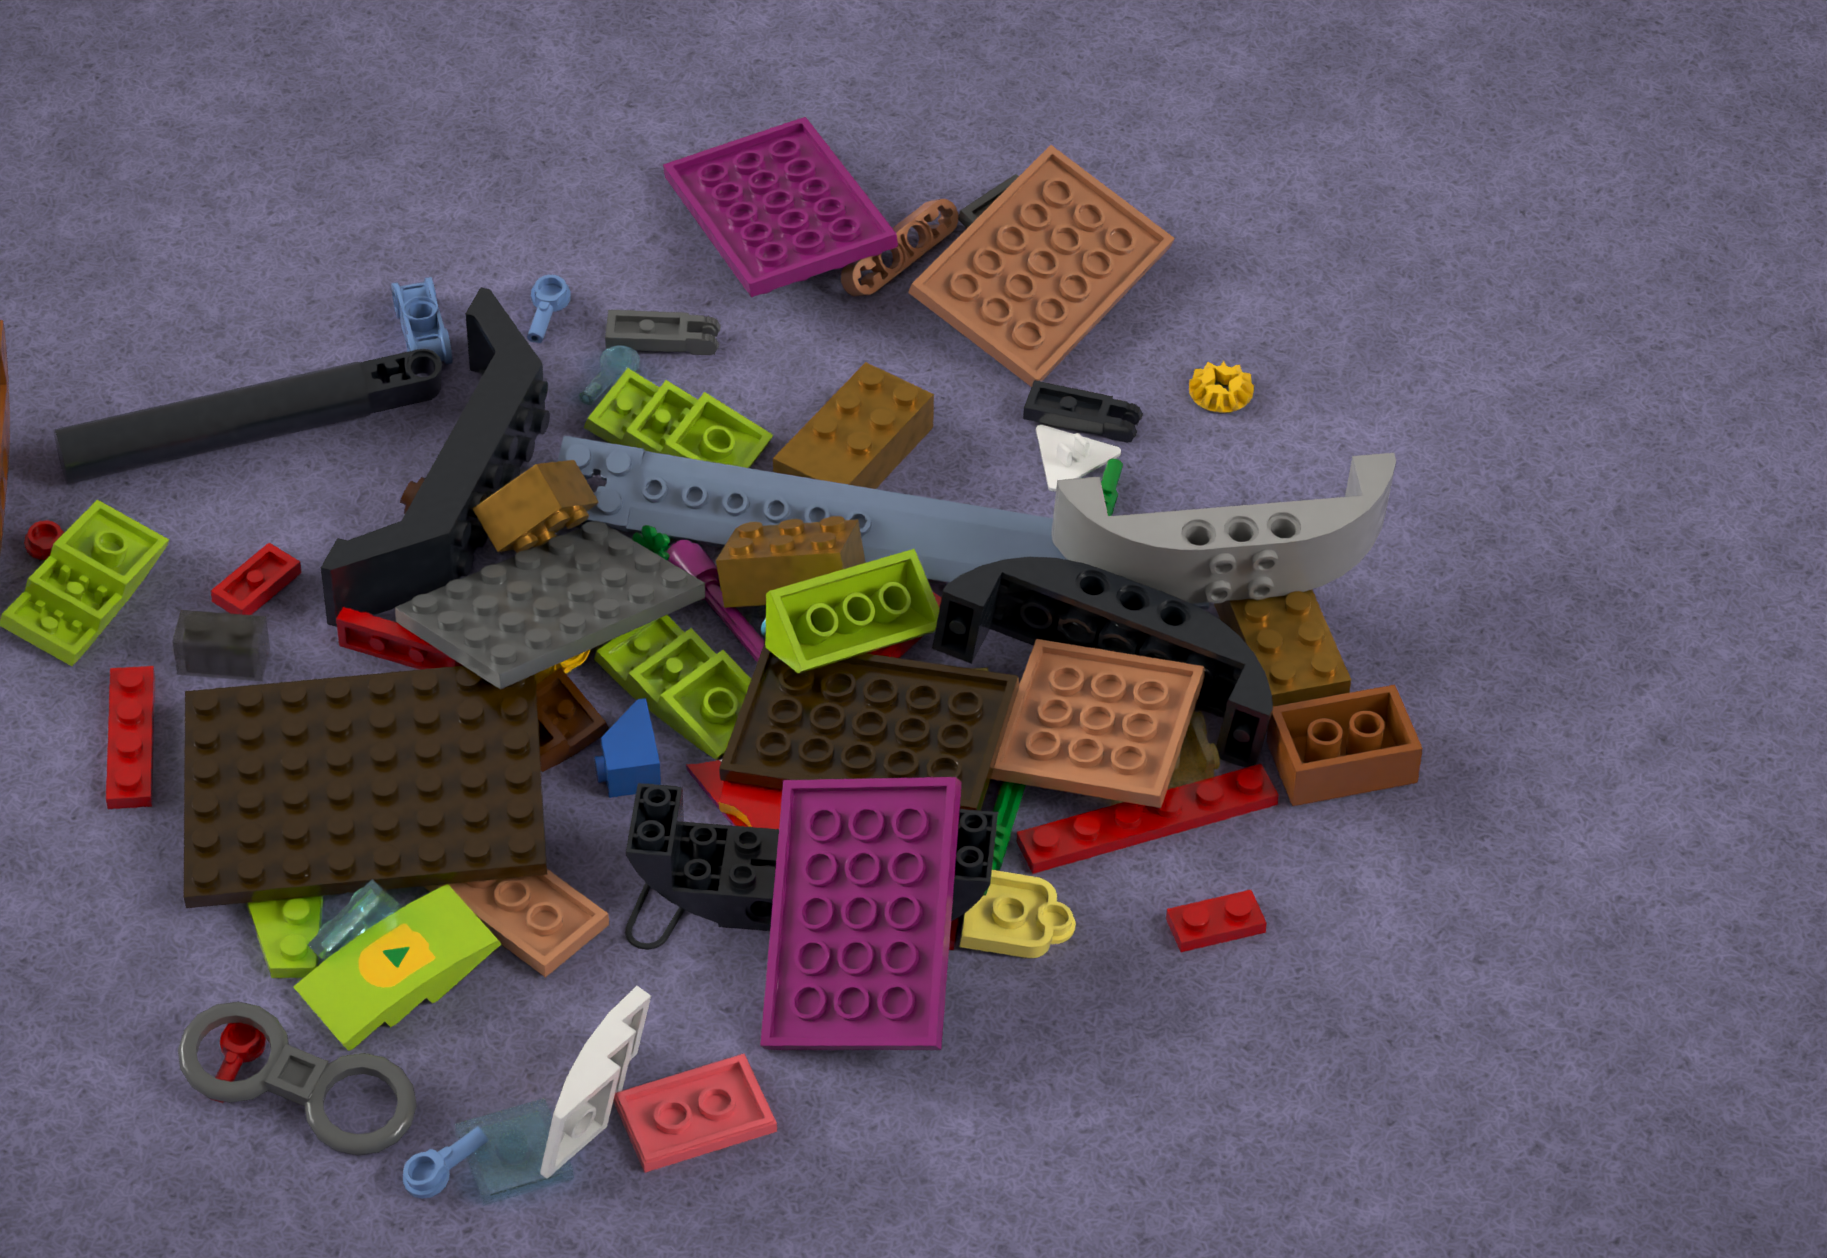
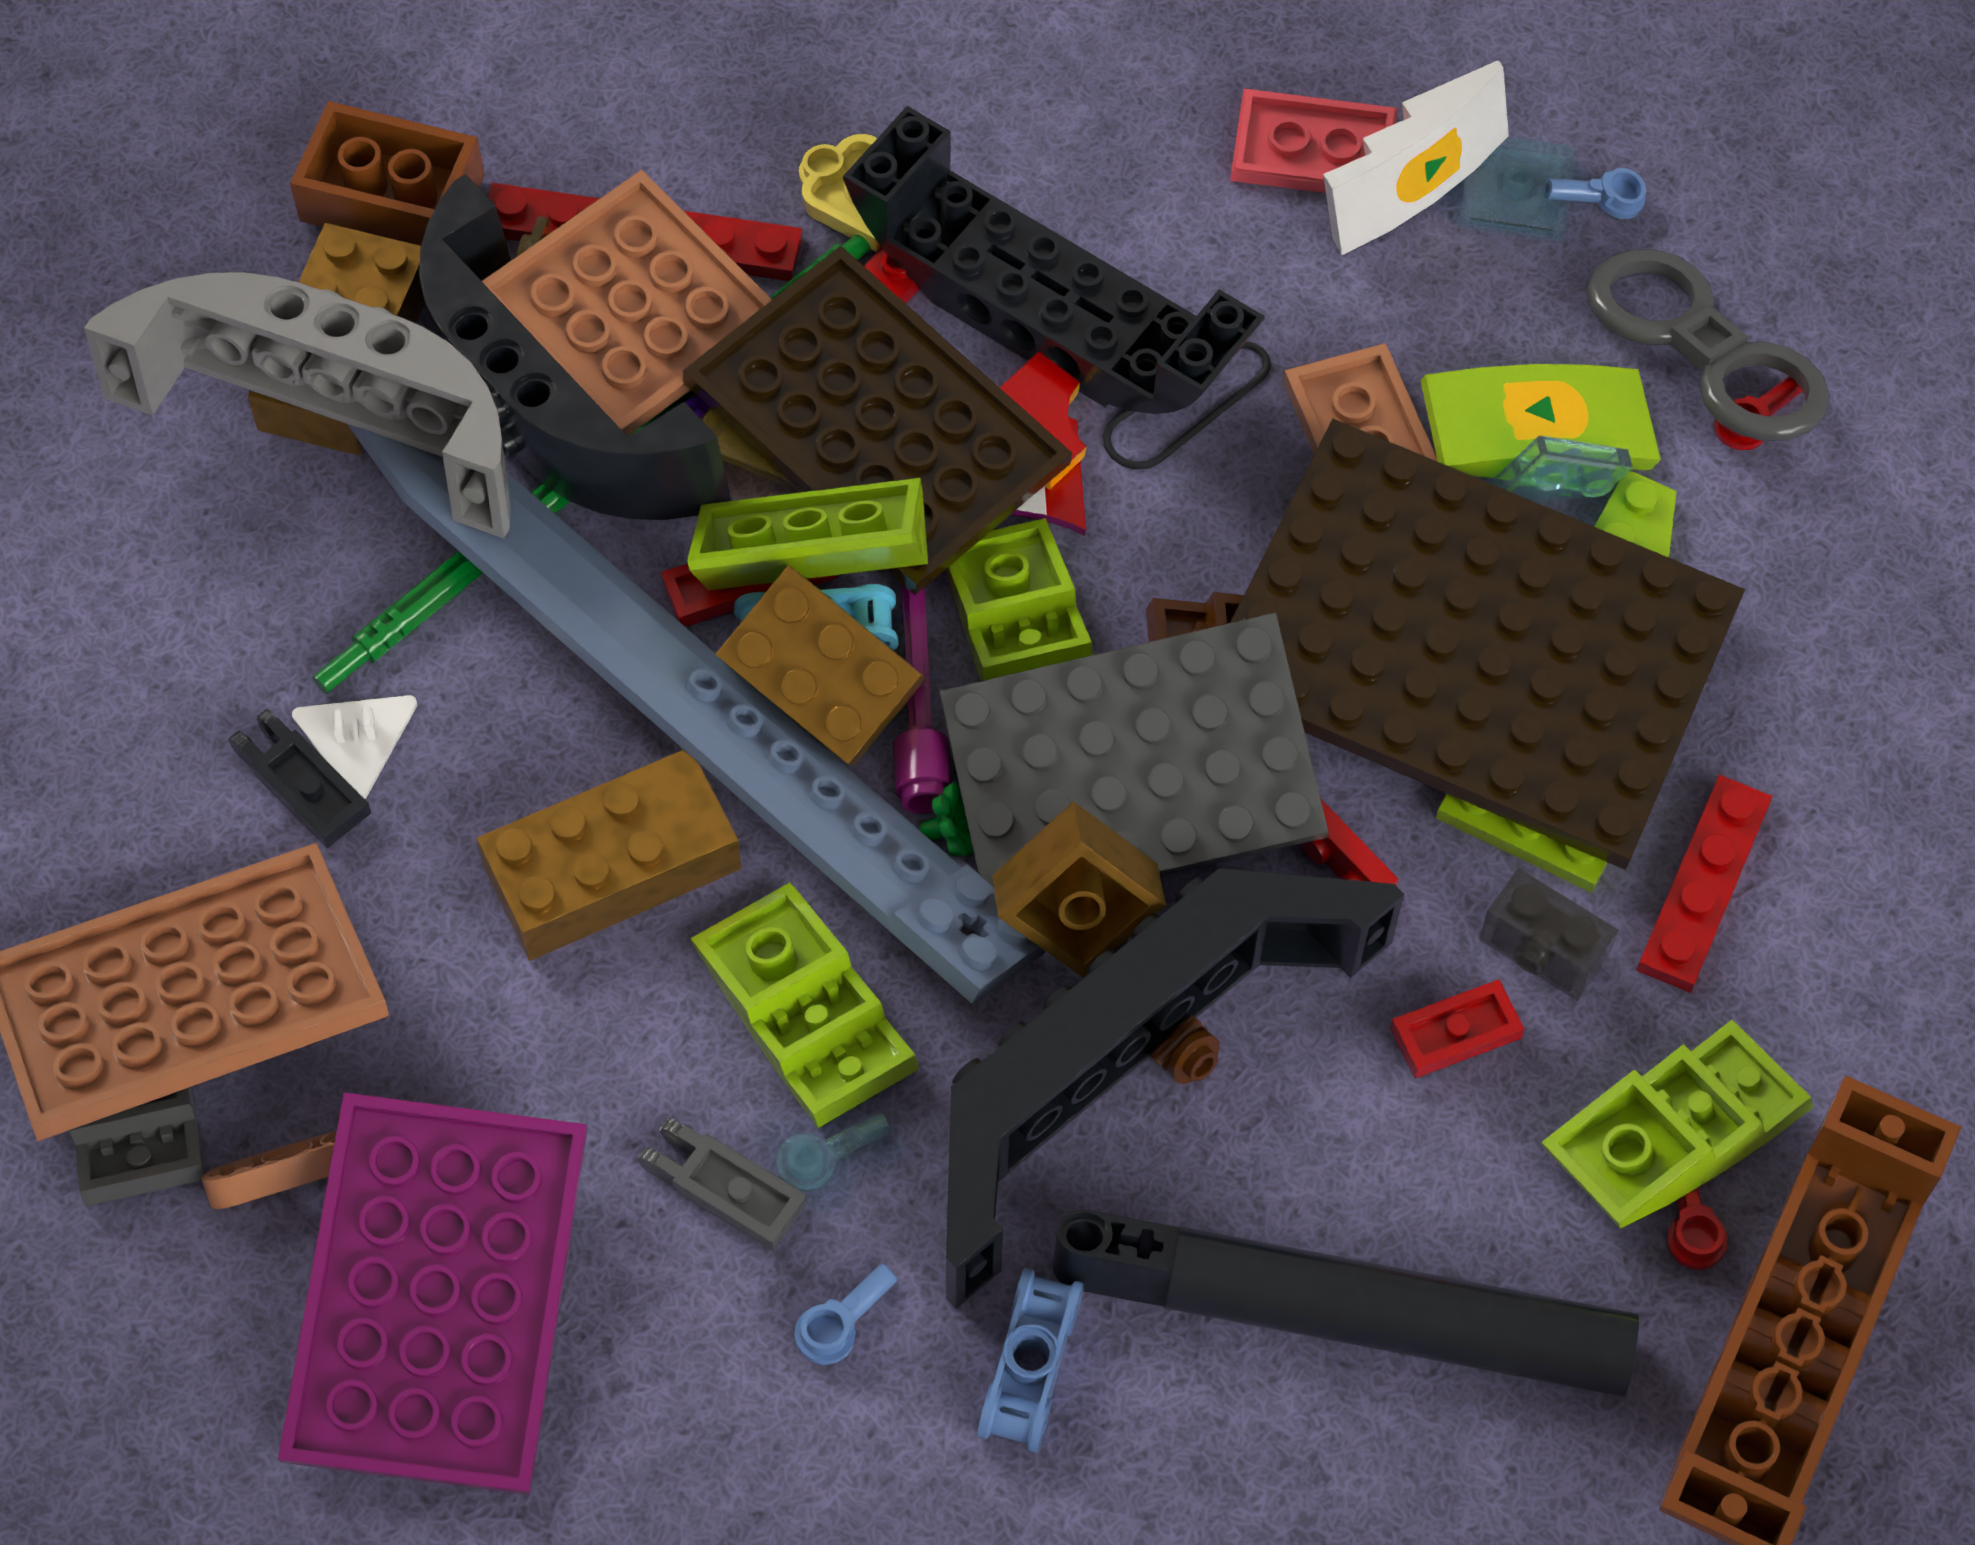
camera: 150 degrees left, 15 degrees up
(629, 753) = (1145, 556): blue slope -> none
(861, 914) = (1047, 165): magenta plate -> none
(1215, 397) = (116, 752): yellow gear -> none
(1216, 920) = (663, 93): red plate -> none

